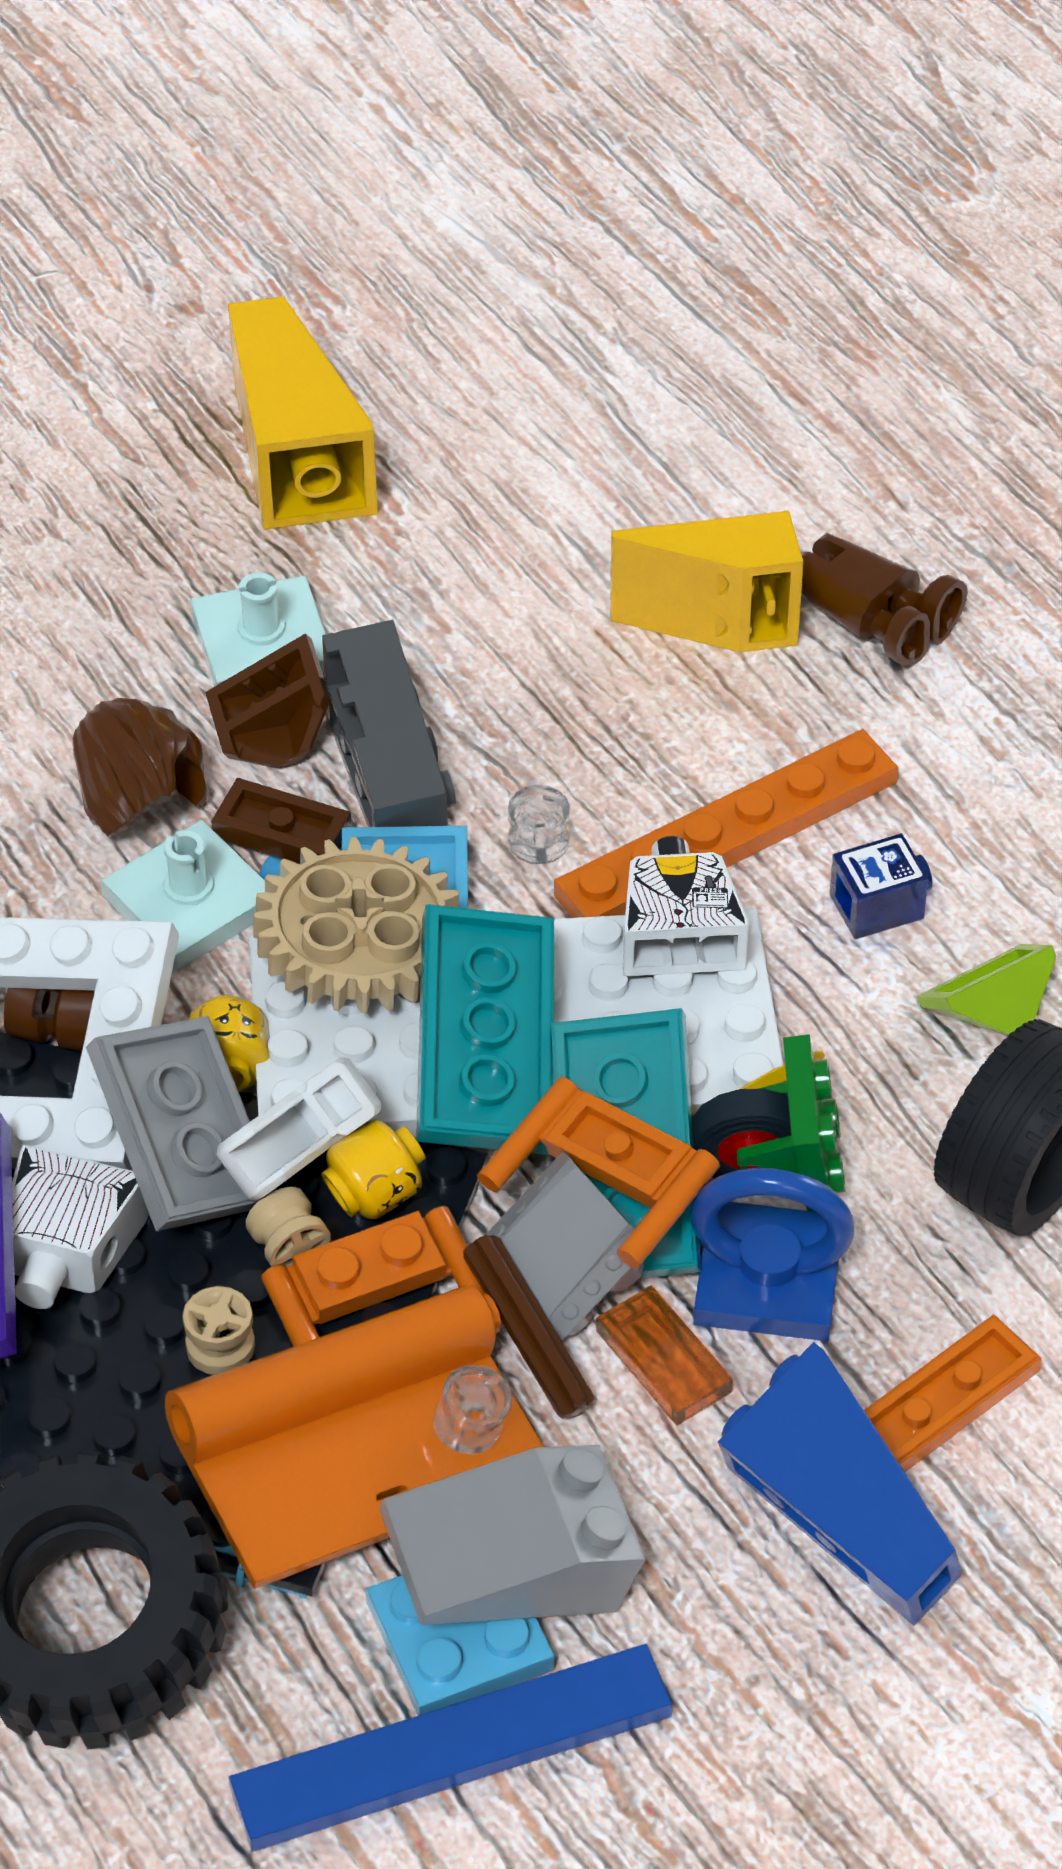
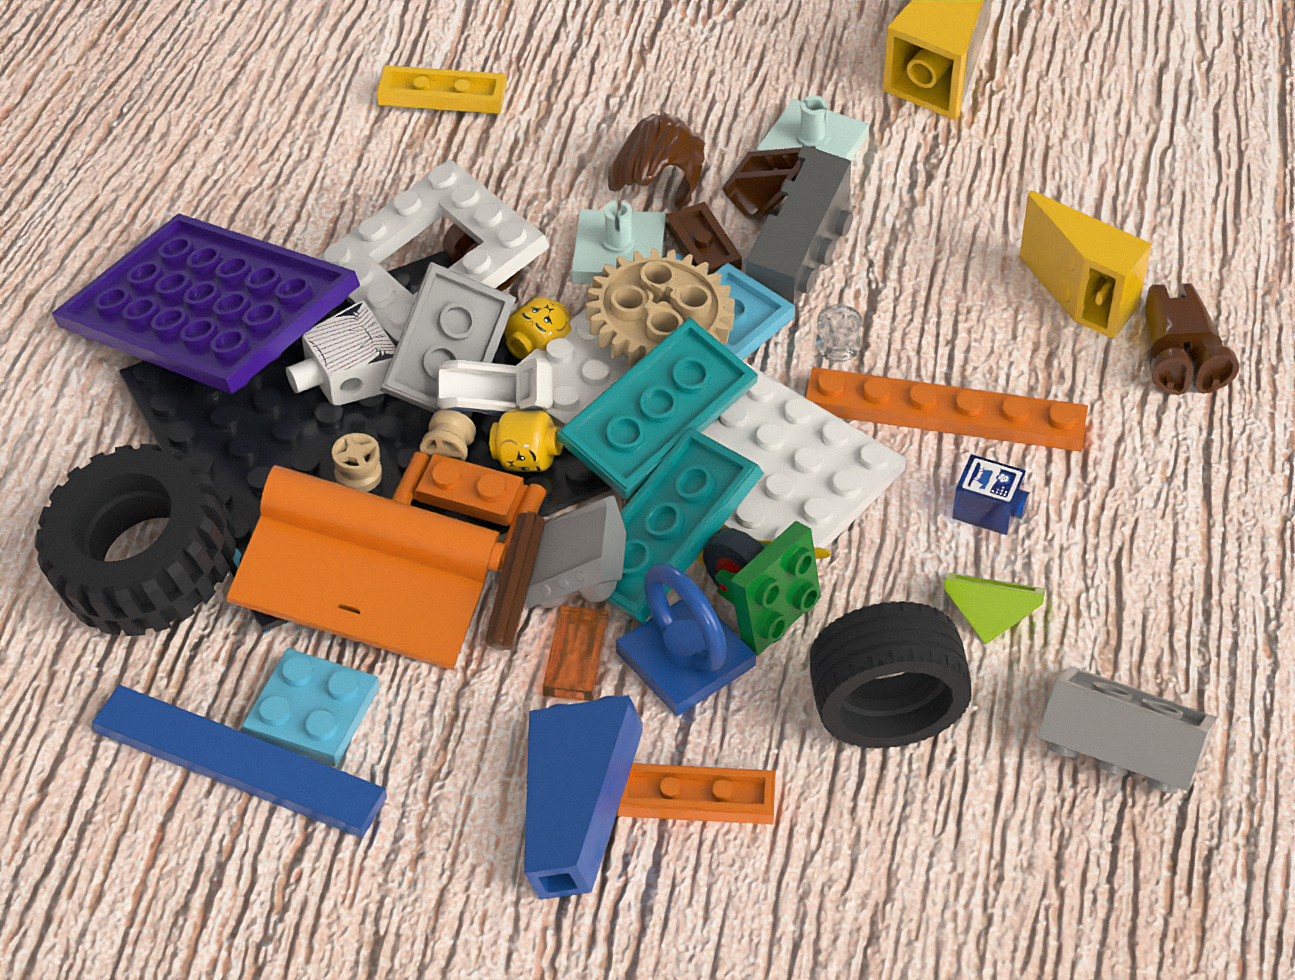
camera: 45 degrees right, 0 degrees up
(468, 1391) = (434, 585): clear wheel -> none
(516, 1539) = (368, 676): light grey slope -> none
(614, 1151) = (641, 515): orange plate -> none
(682, 913) = (839, 422): white torso -> none

